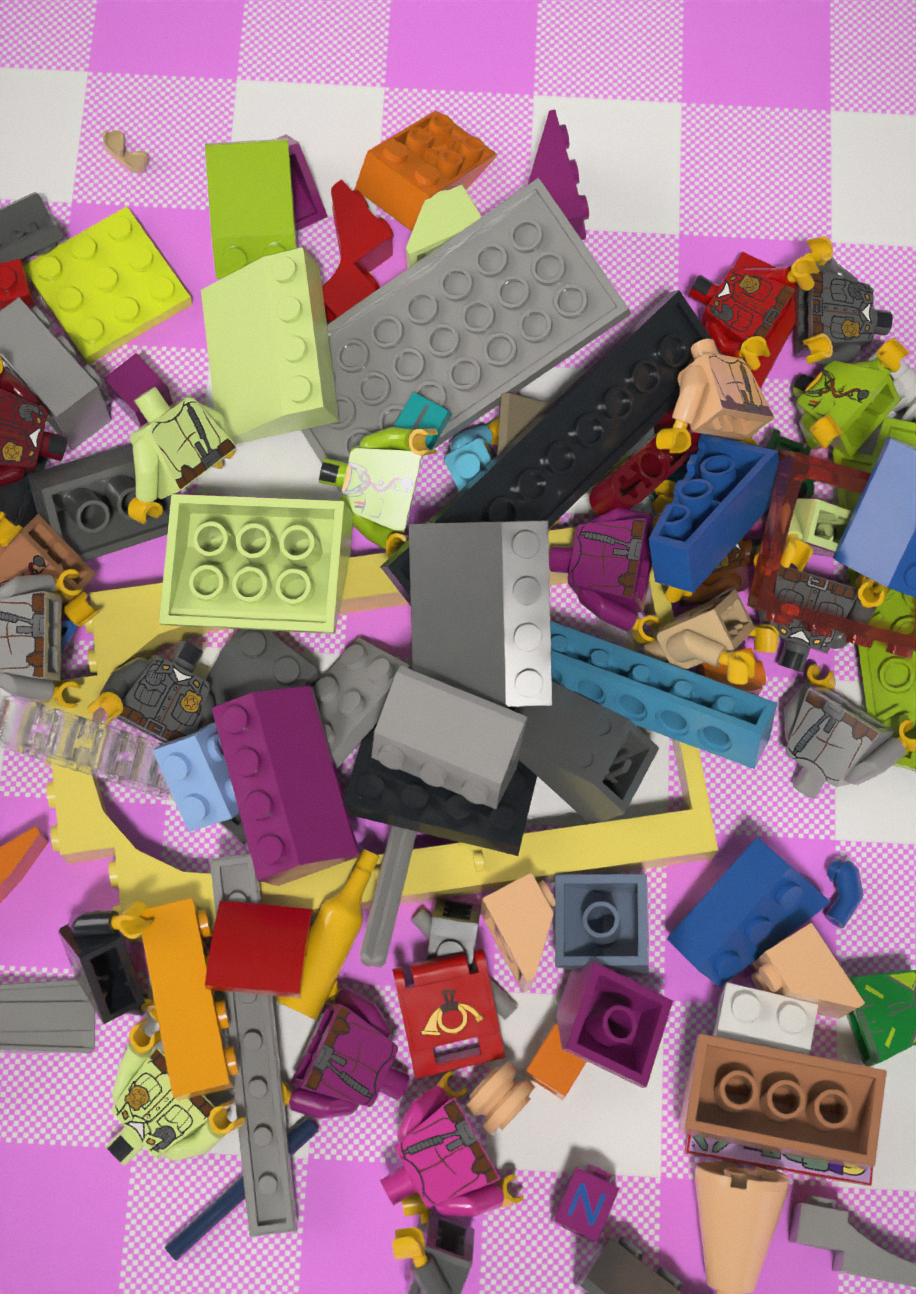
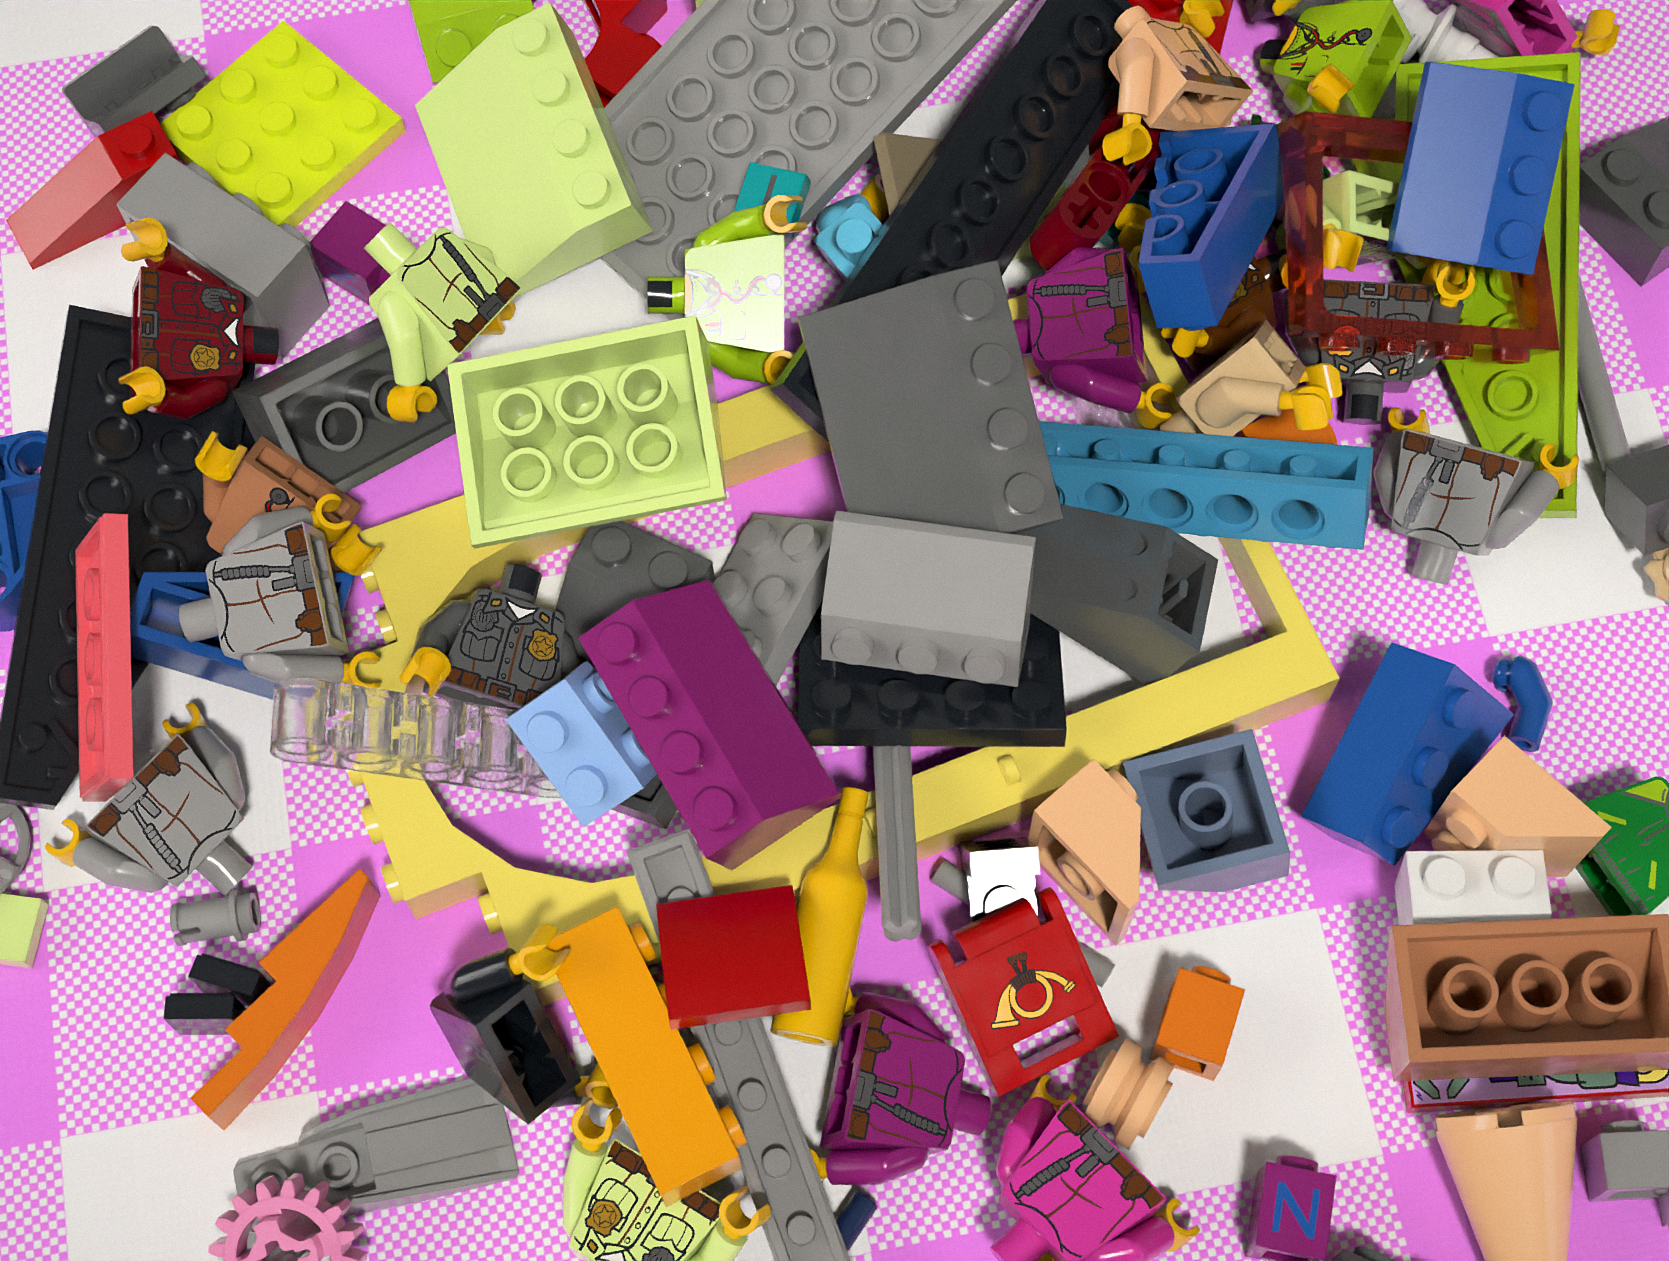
camera: 10 degrees left, 5 degrees down
(612, 1022) = (1261, 941): magenta slope -> none

